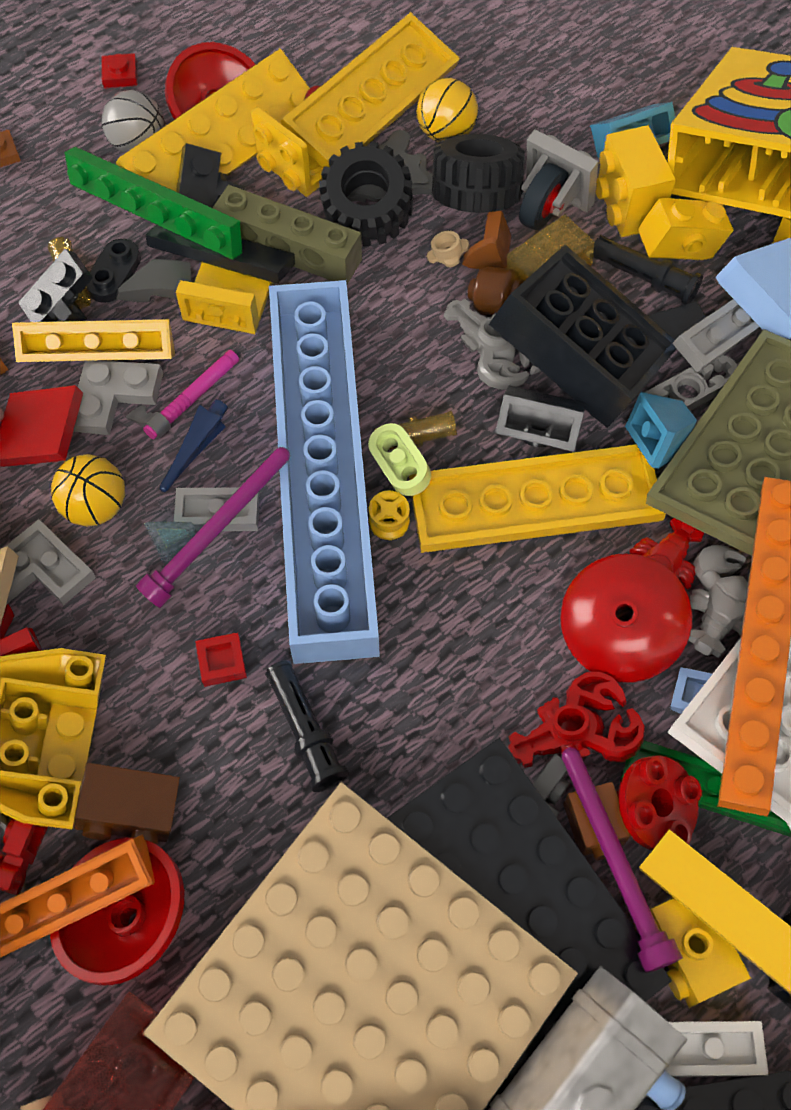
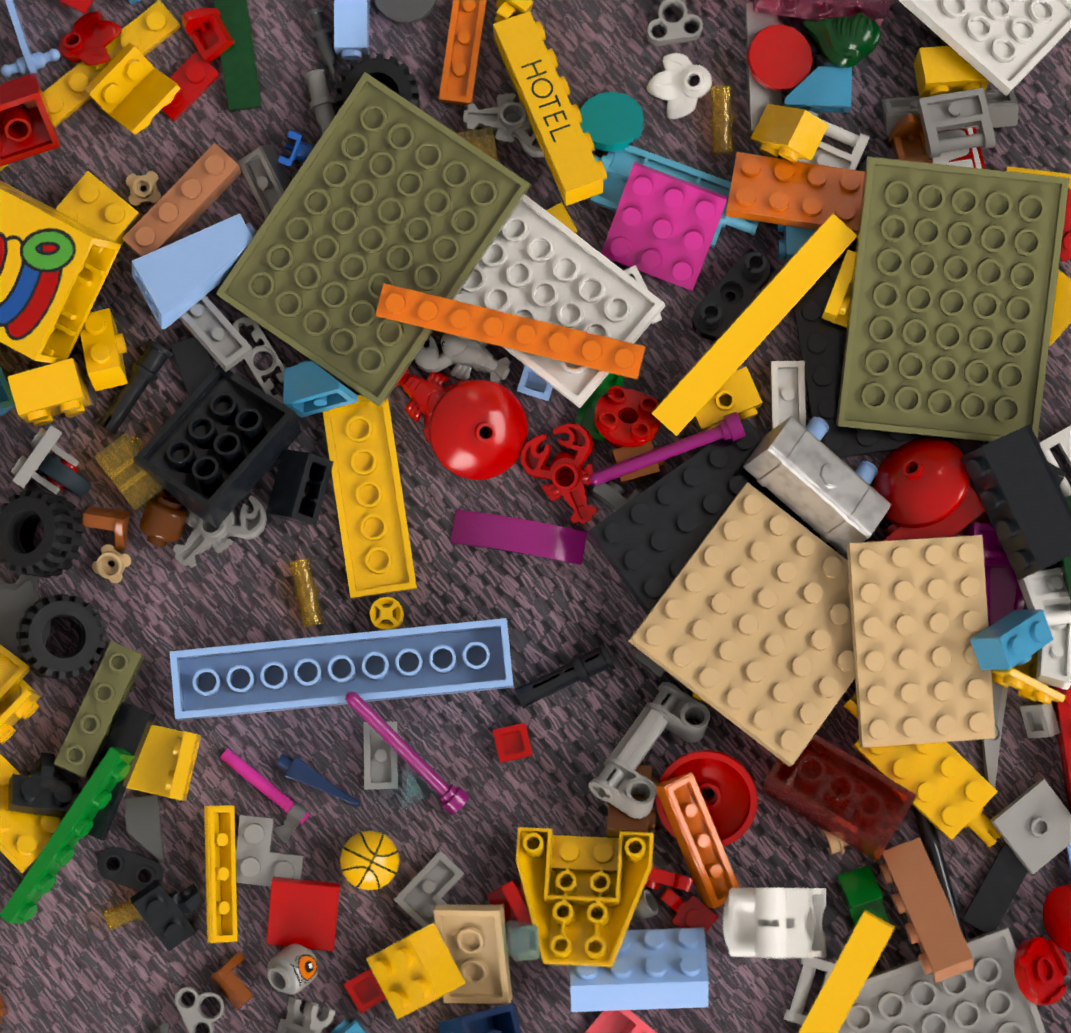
camera: 90 degrees left, 20 degrees up
(151, 773) = (618, 778): none -> light grey piece
(401, 461) = (344, 604): yellowish green plate -> none
(487, 672) = (518, 536): none -> magenta slope

